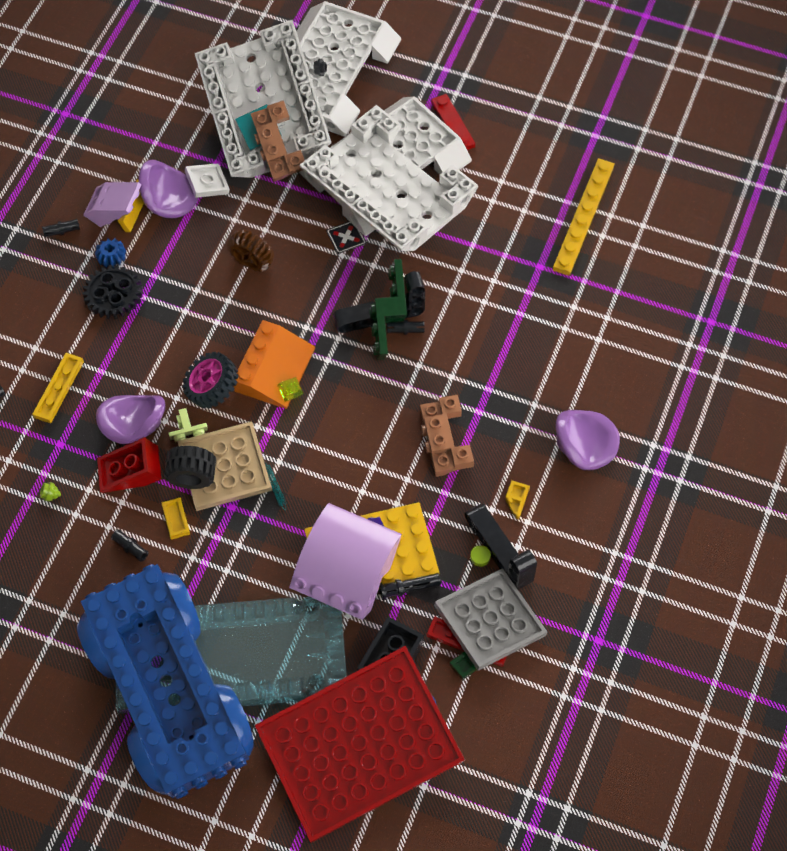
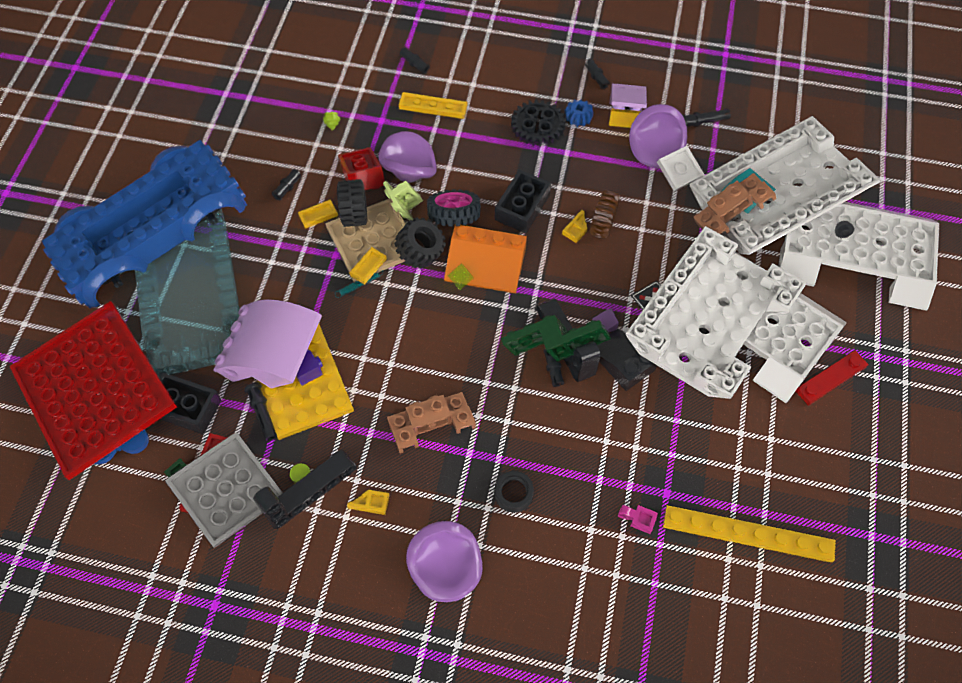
camera: 80 degrees right, 0 degrees up
(147, 152) = (697, 119): none -> black pin
(214, 319) = (522, 201): none -> black brick
(247, 416) = (411, 250): none -> black tyre
(251, 282) = (576, 228): none -> yellow tile
(261, 469) = (368, 265): none -> yellow tile
(365, 277) = (608, 320): none -> medium lavender slope
(417, 260) = (624, 361): none -> black slope
(524, 365) = (513, 476): none -> black tyre
(562, 286) = (642, 518): none -> dark pink plate

